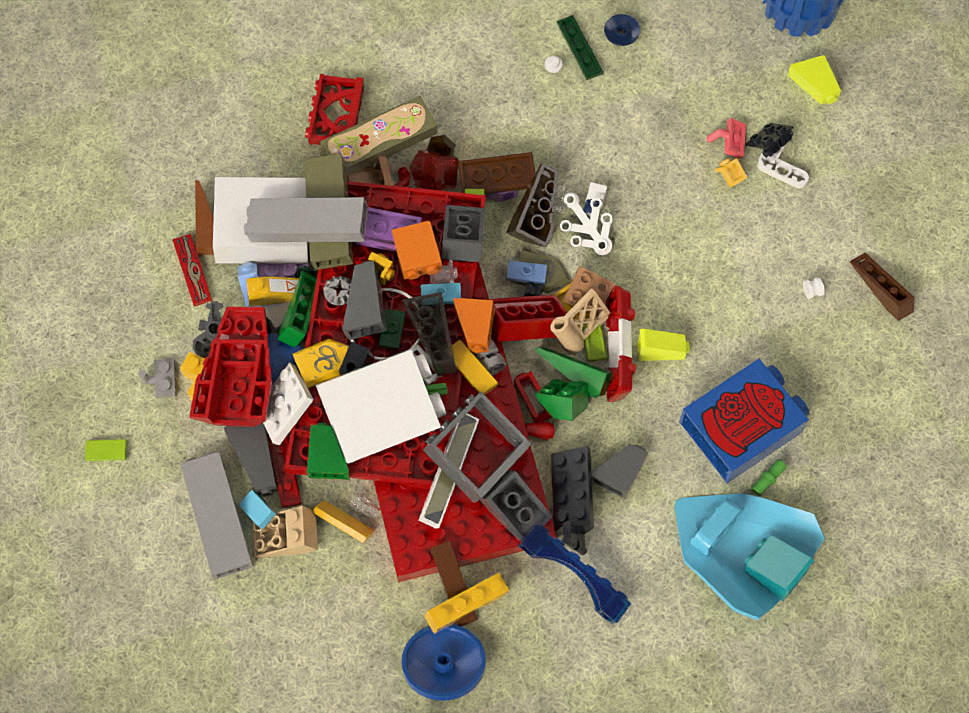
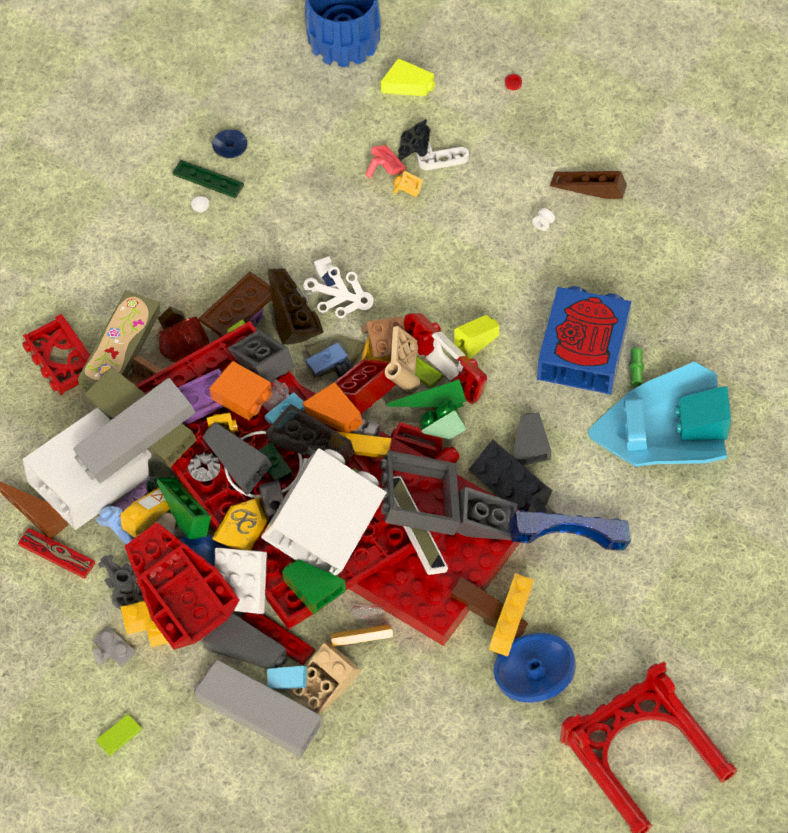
camera: 40 degrees left, 10 degrees down
(404, 177) = (161, 362): red arm -> none
(905, 146) = (513, 82): none -> red tile

